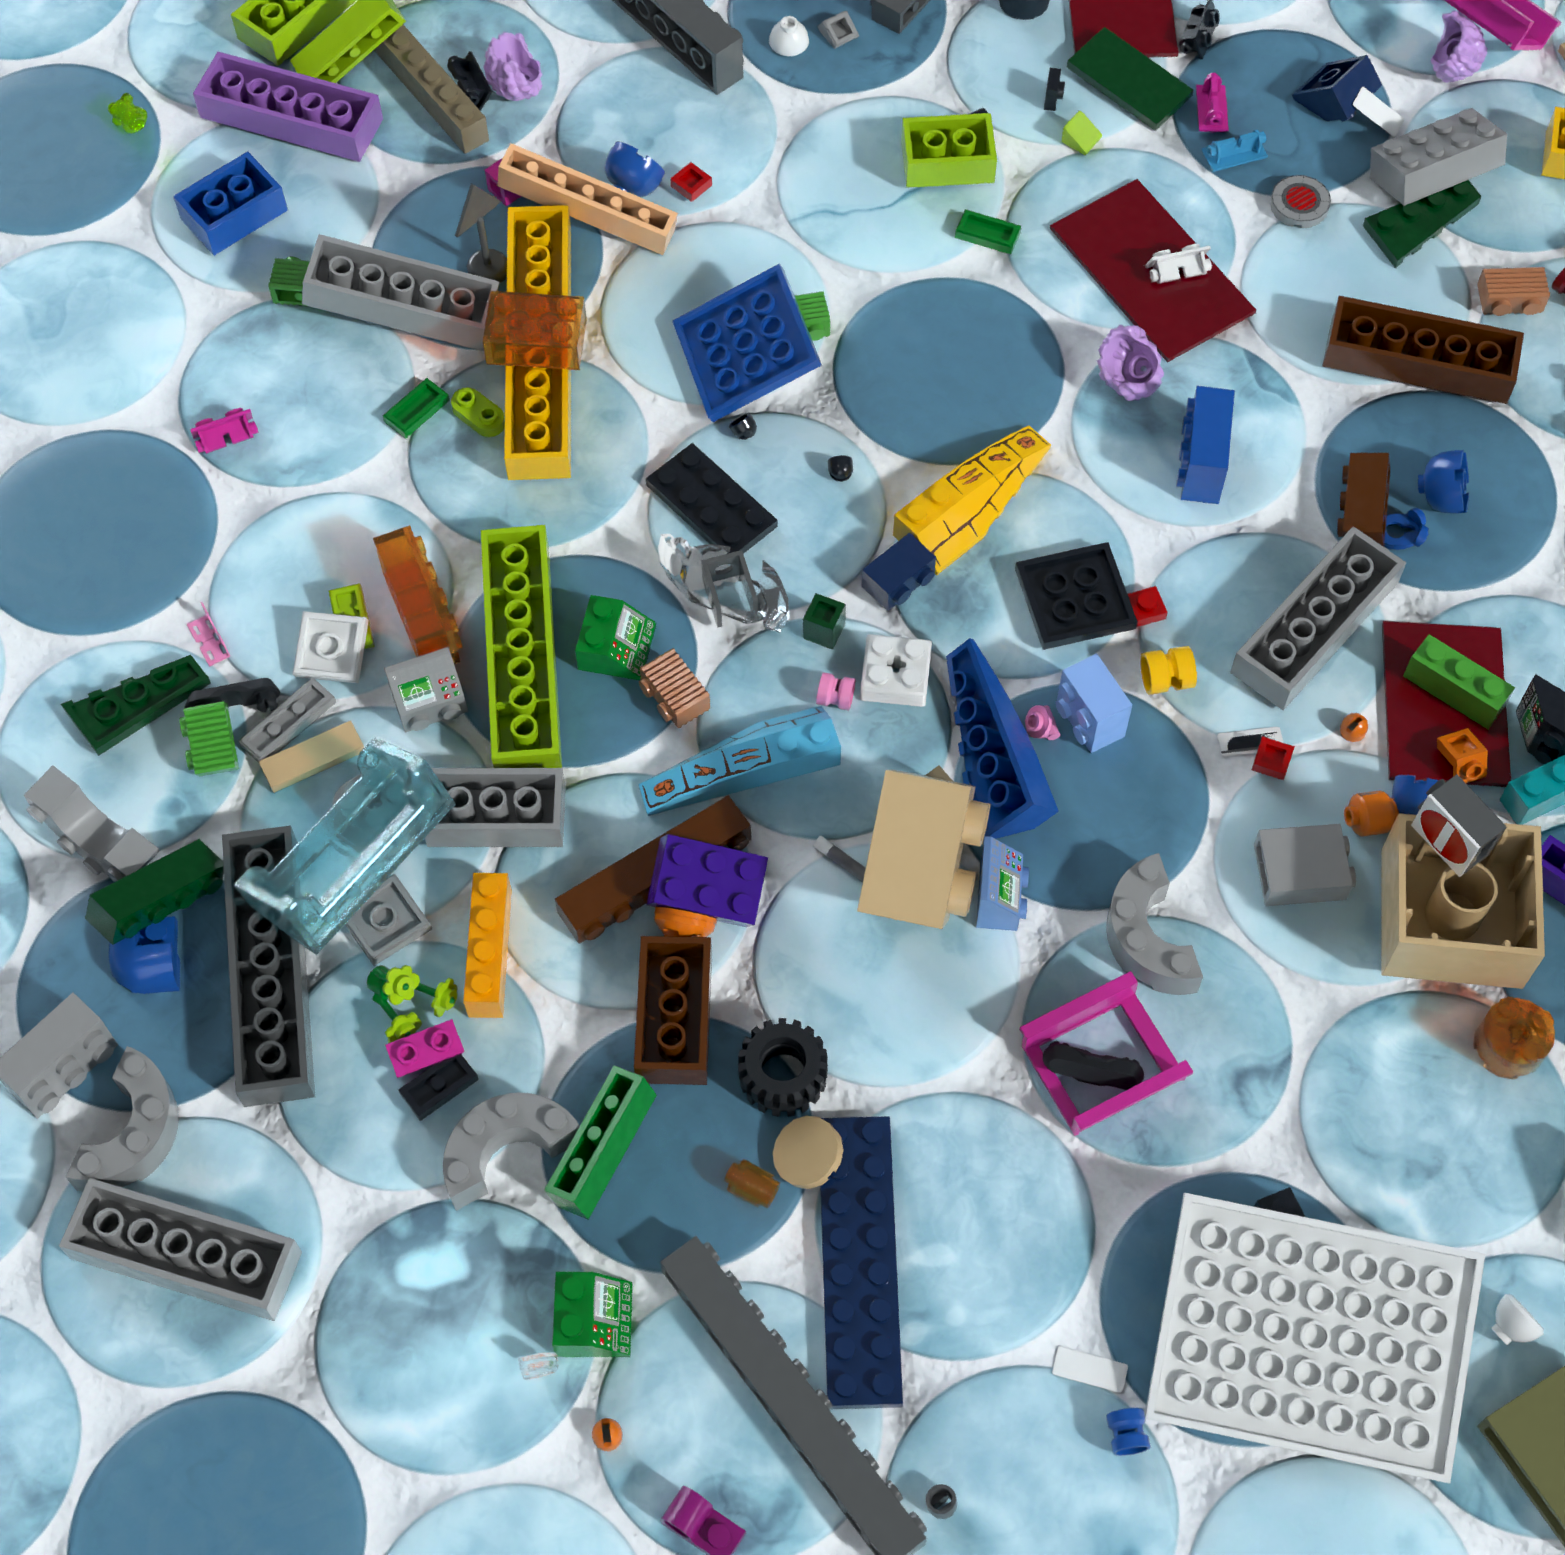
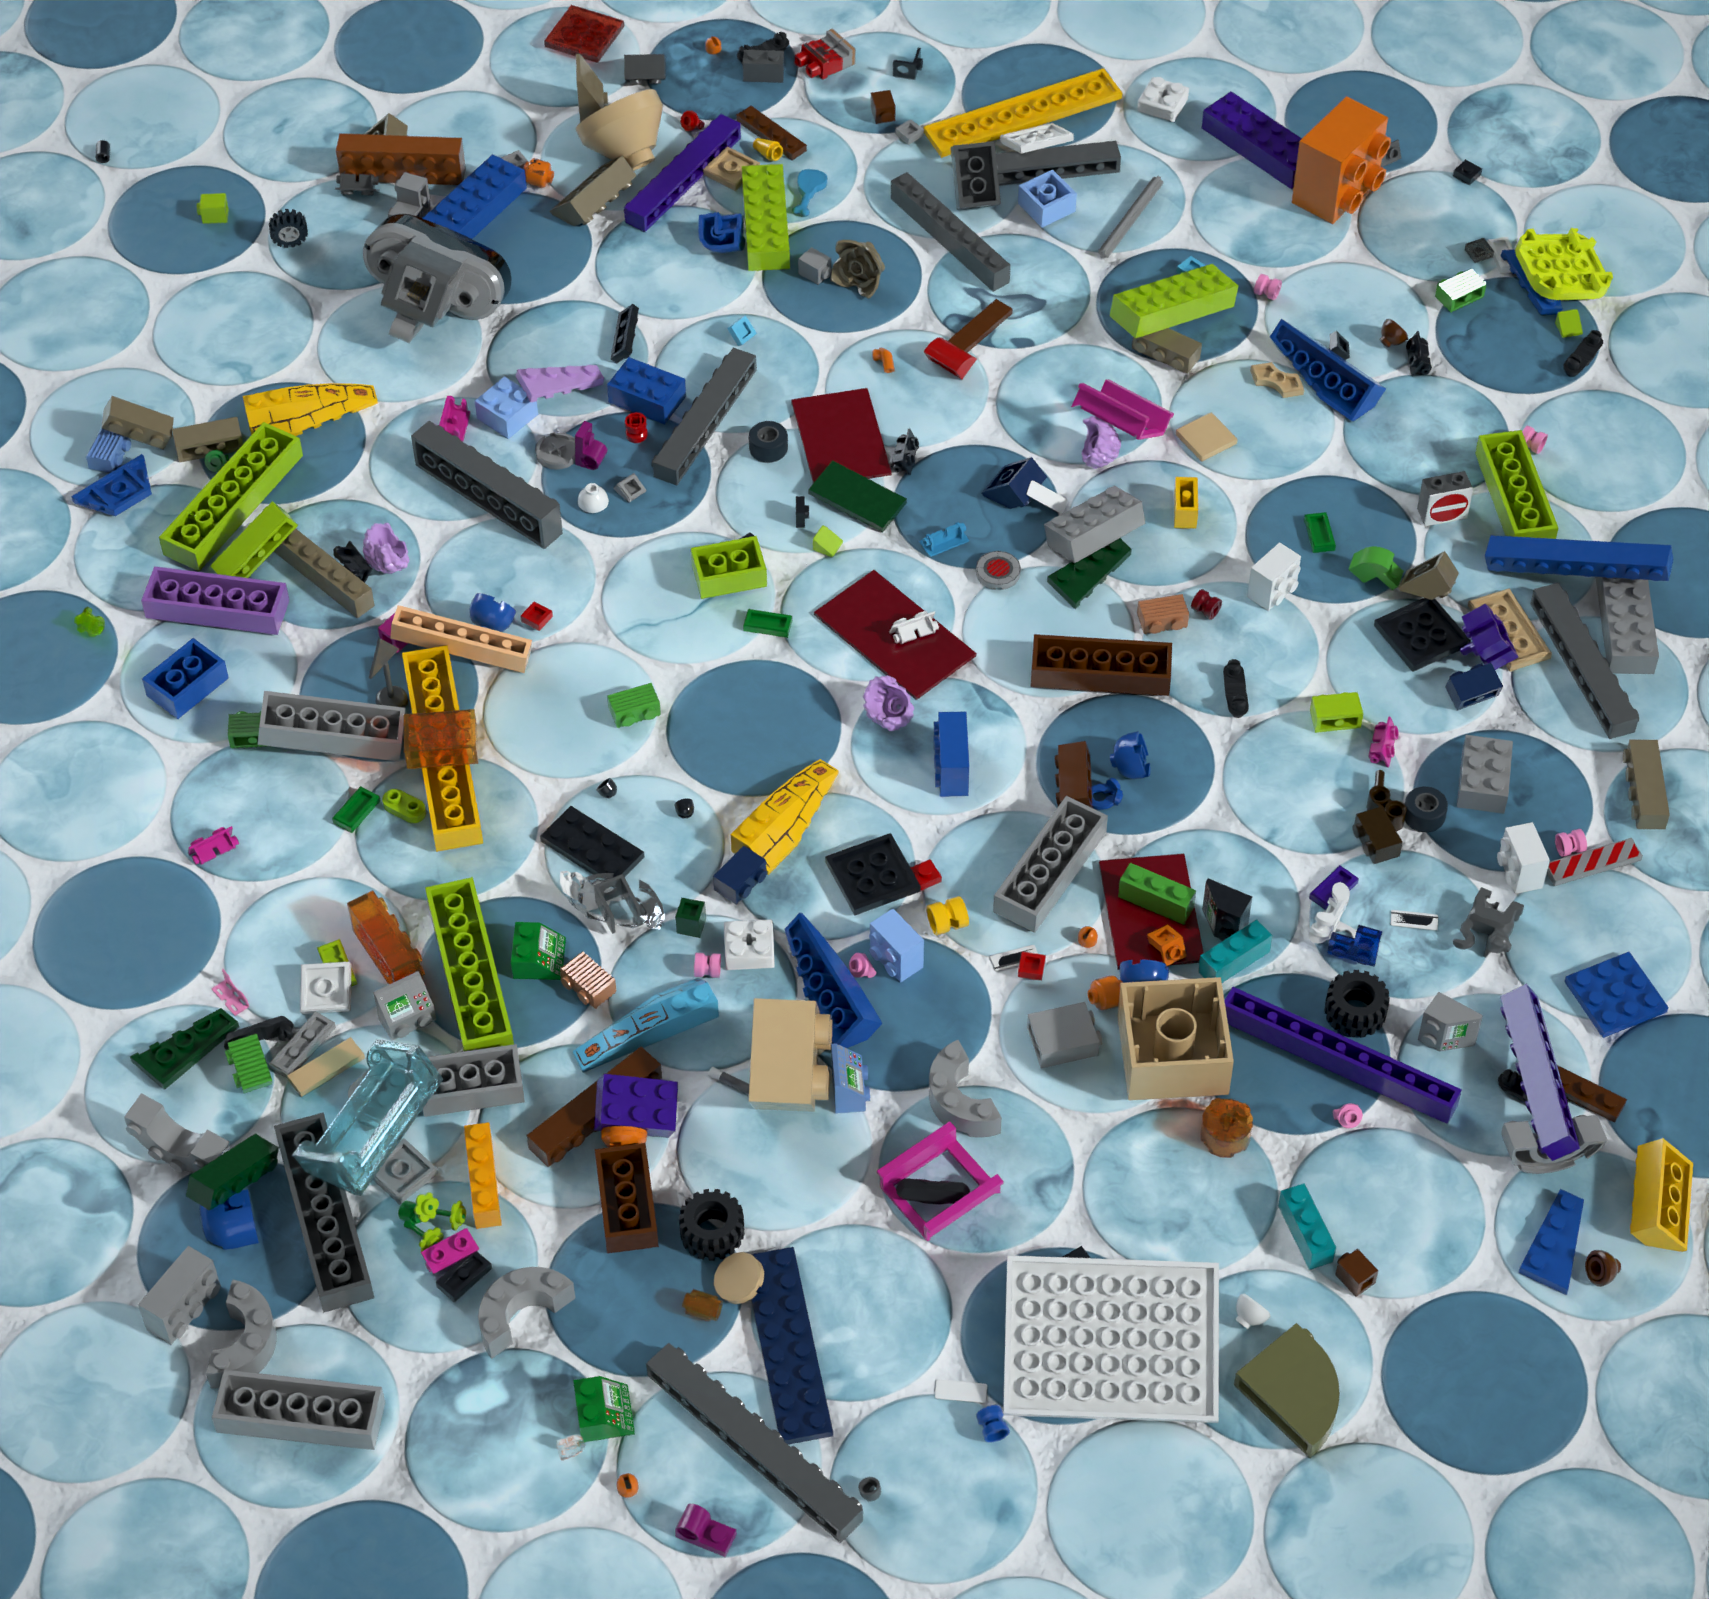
camera: 10 degrees left, 10 degrees down
(600, 1142) = (589, 1293): green brick -> none
(746, 343) = (599, 727): blue plate -> none
(1212, 105) = (922, 508): dark pink hinge -> none
(1457, 824) = (1160, 981): piece -> none

